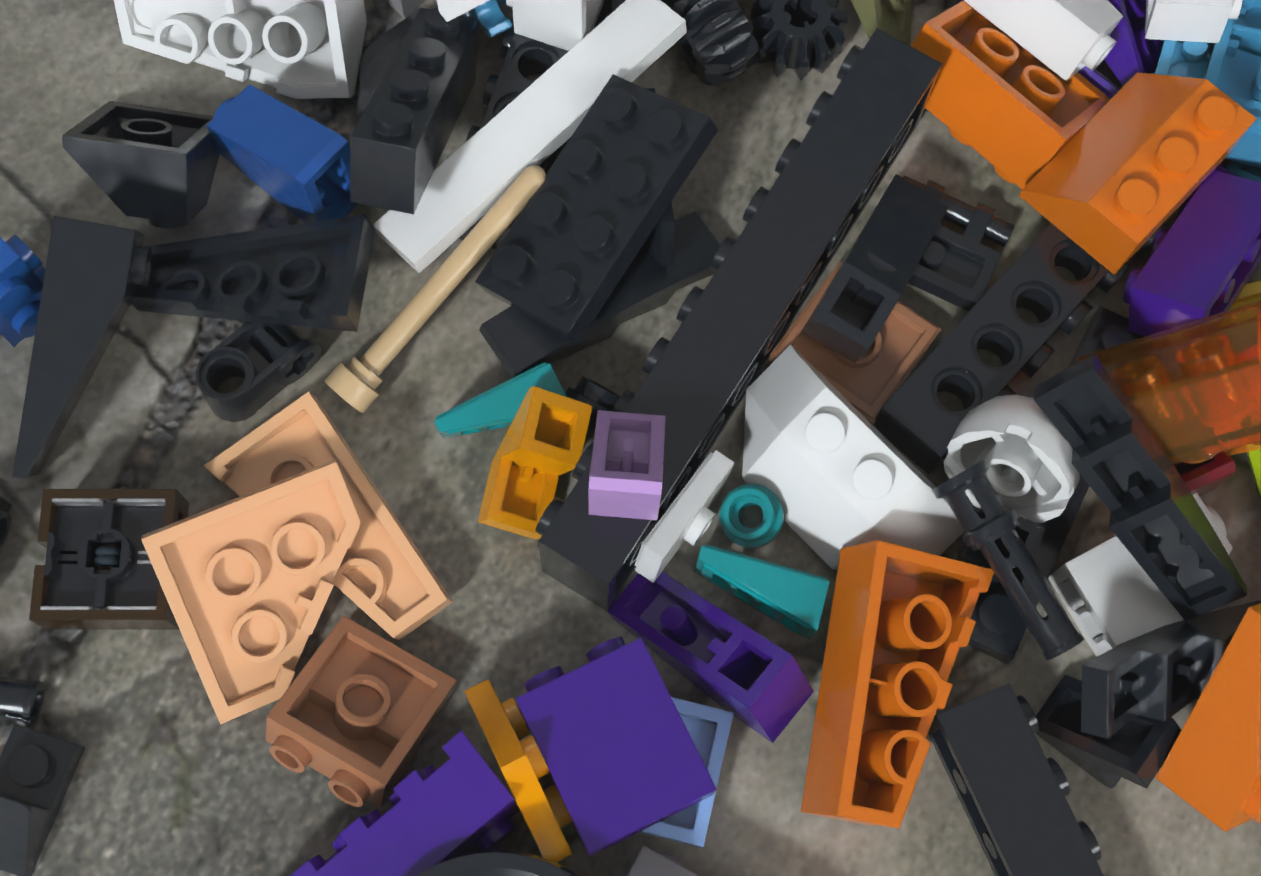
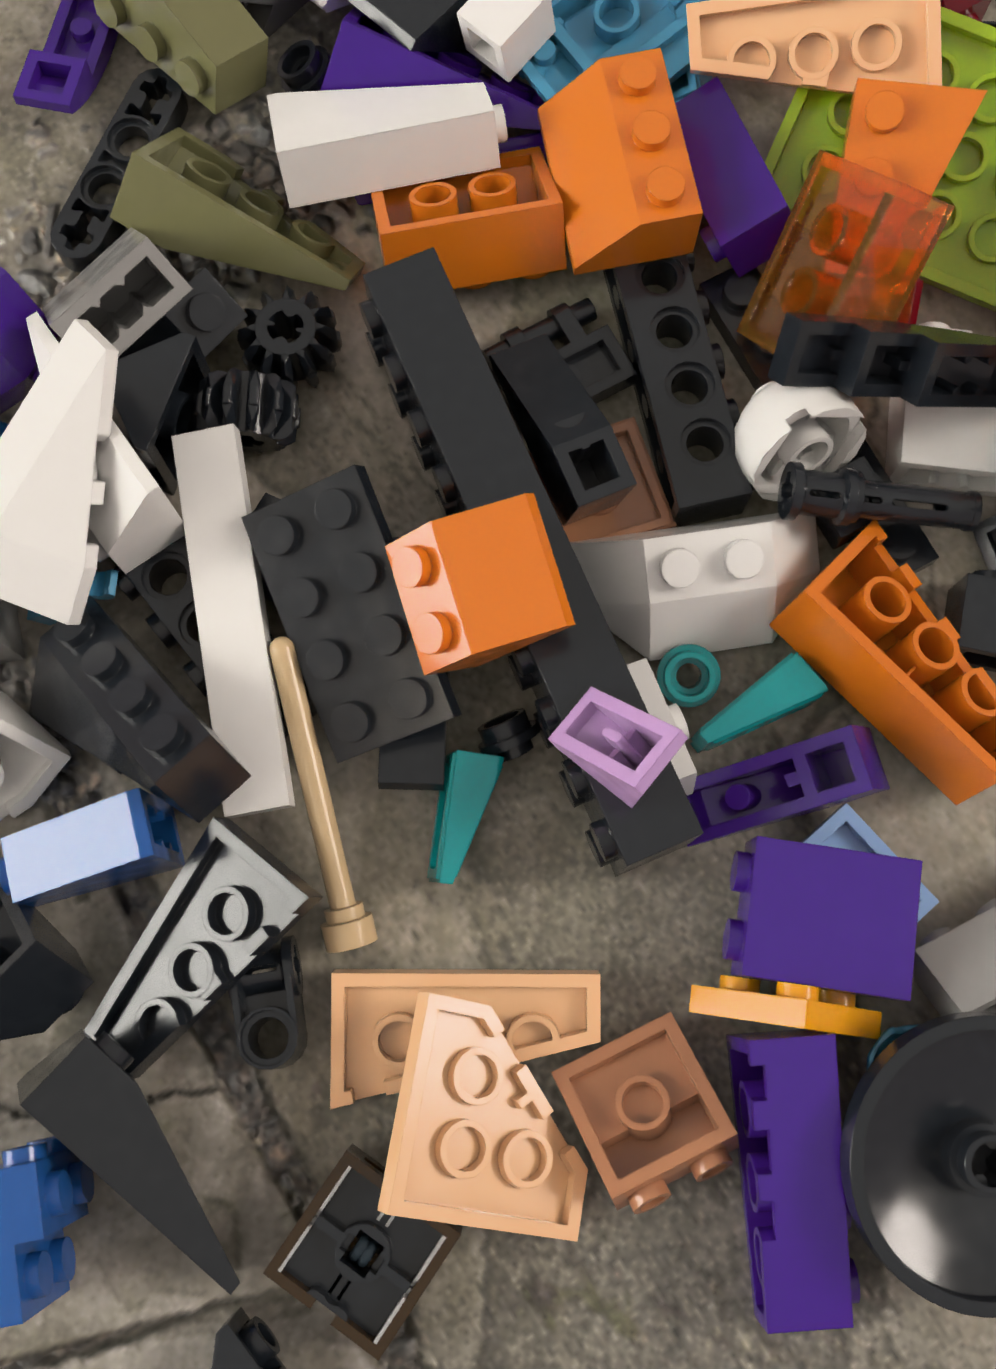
camera: 50 degrees left, 5 degrees up
(536, 449) = (526, 833): light orange slope -> none
(681, 272) = (479, 584): none -> orange slope

